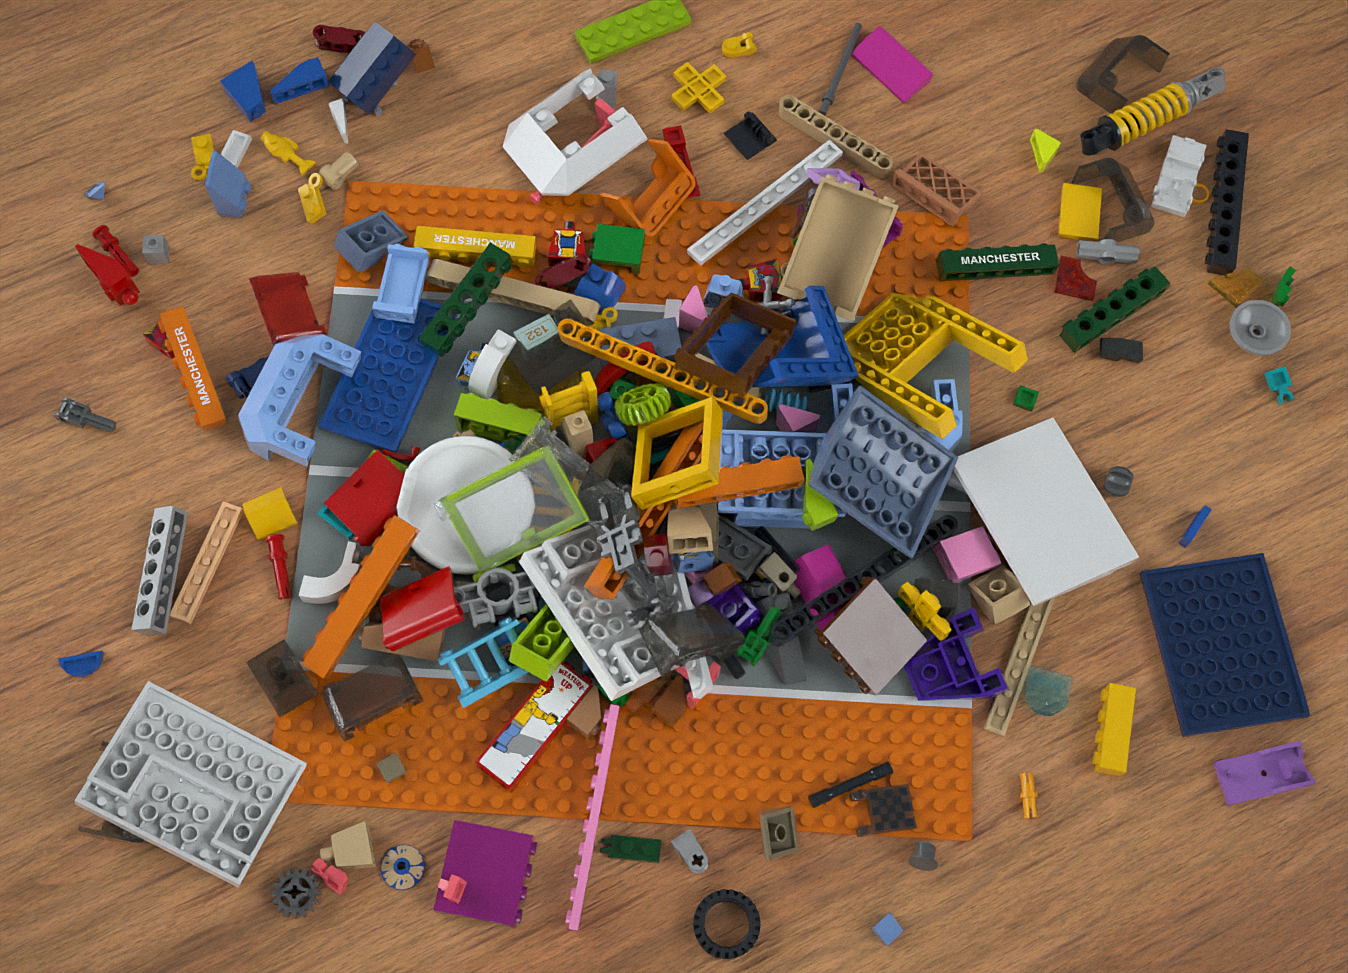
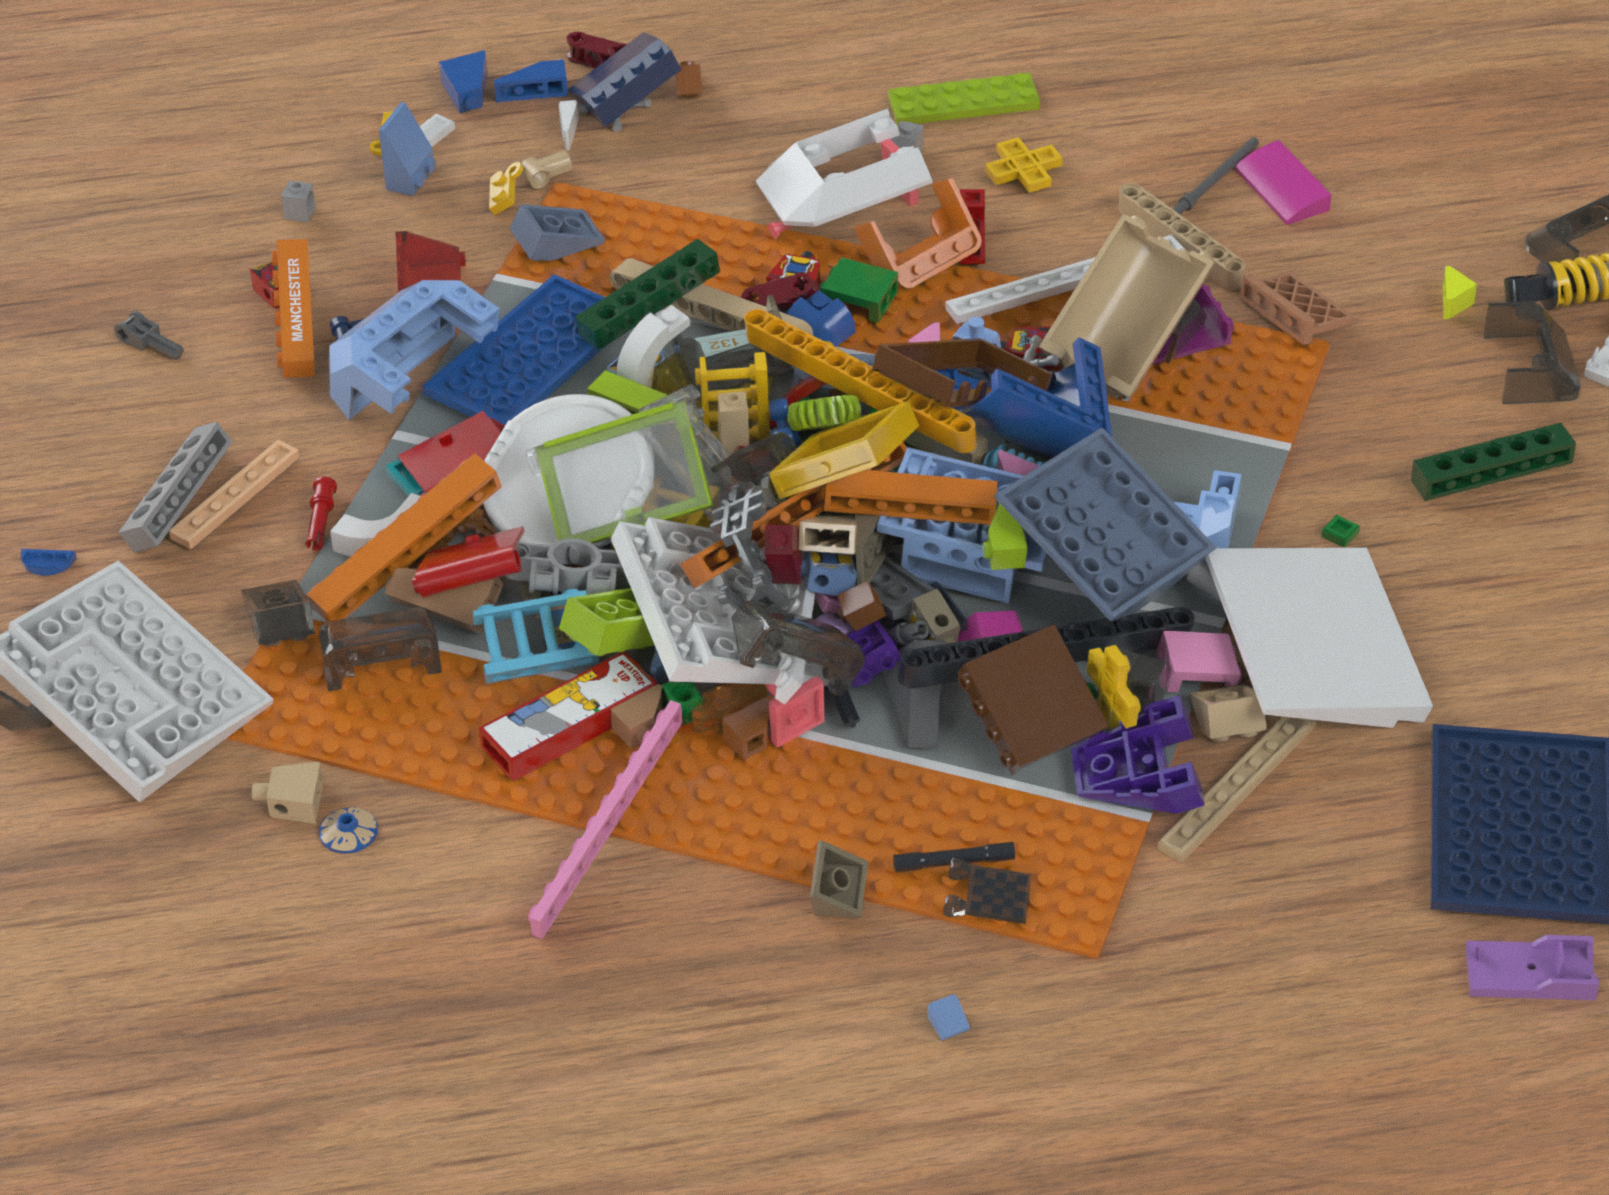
camera: 20 degrees right, 25 degrees down
(96, 191) = (252, 141): medium blue slope -> none
(111, 245) = (260, 214): red pin -> none
(112, 276) = (235, 210): red slope -> none
(269, 513) = (330, 461): yellow slope -> none
(284, 149) = (490, 141): yellow animal -> none
(296, 883) = (207, 820): dark grey gear -> none
(332, 877) = (259, 814): coral plate -> none
(391, 768) = (374, 724): dark tan tile -> none
(402, 283) = (577, 272): light blue panel -> none
(453, 888) = (401, 839): coral tile -> none
(469, 245) = (737, 268): yellow brick -> none
(495, 872) = (448, 848): magenta panel -> none
(632, 848) = (645, 870): dark green hinge -> none
(688, 849) = (718, 886): light grey piece -> none
(732, 46) = (1091, 136): yellow plate -> none
(750, 136) = (1073, 220): black hinge -> none
(752, 914) = (736, 993): black tyre -> none
(757, 640) = (882, 688): green connector -> none
(908, 334) = (1205, 427): yellow wedge -> none
(924, 857) = (1023, 953): dark grey piece -> none
(997, 262) = (1348, 386): dark green brick -> none
(1028, 795) = (1192, 922): light orange pin -> none
(1047, 691) = (1258, 820): clear light blue slope -> none
(1073, 281) = (1448, 427): clear red tile -> none
(1080, 212) = (1482, 363): yellow tile -> none
(1107, 251) = (1504, 404): light grey piece -> none
(1114, 730) = (1335, 877): yellow brick -> none
(1118, 481) = (1434, 629): dark grey piece -> none
(1120, 348) = (1482, 500): pearl dark grey slope -> none
(1194, 526) = (1525, 694): blue tile -> none

